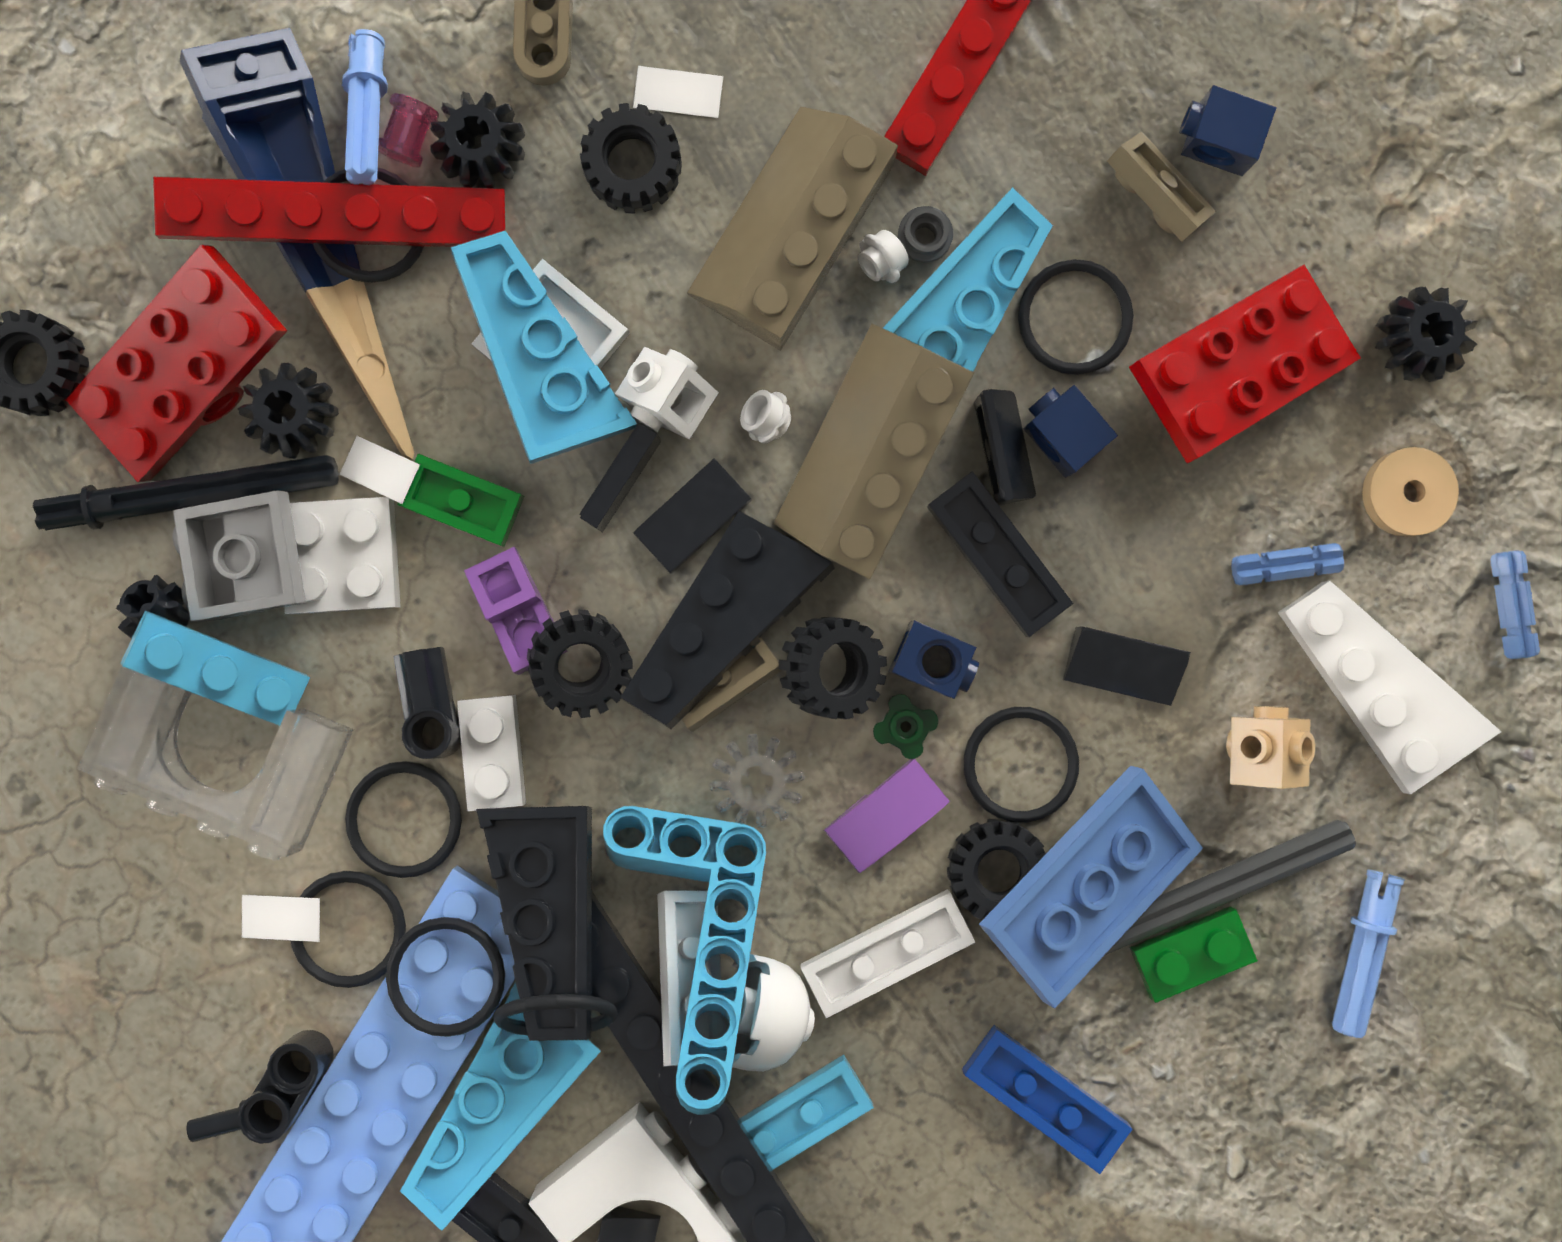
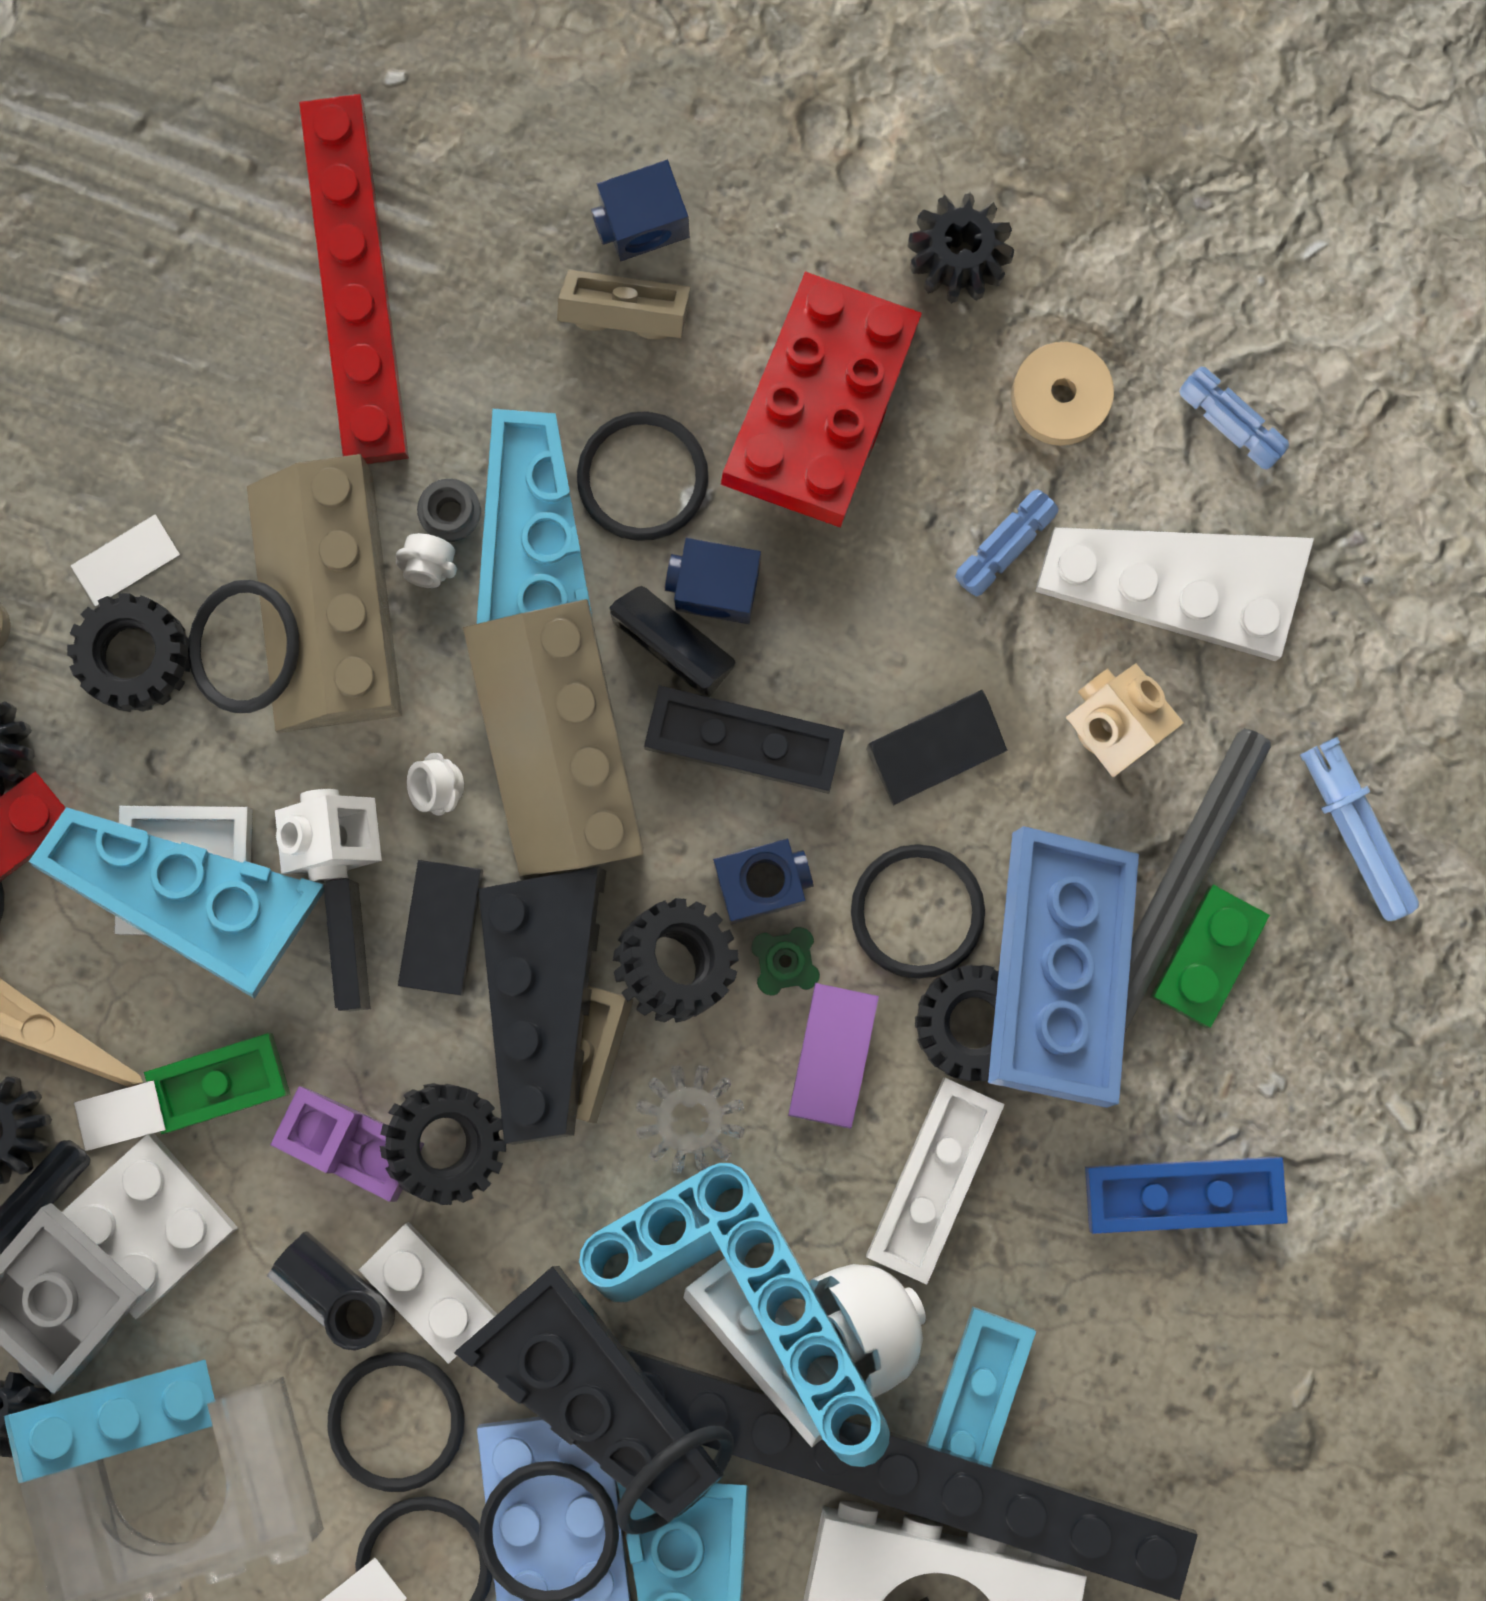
camera: 35 degrees left, 5 degrees down
(746, 241) = (292, 646): none -> black tyre

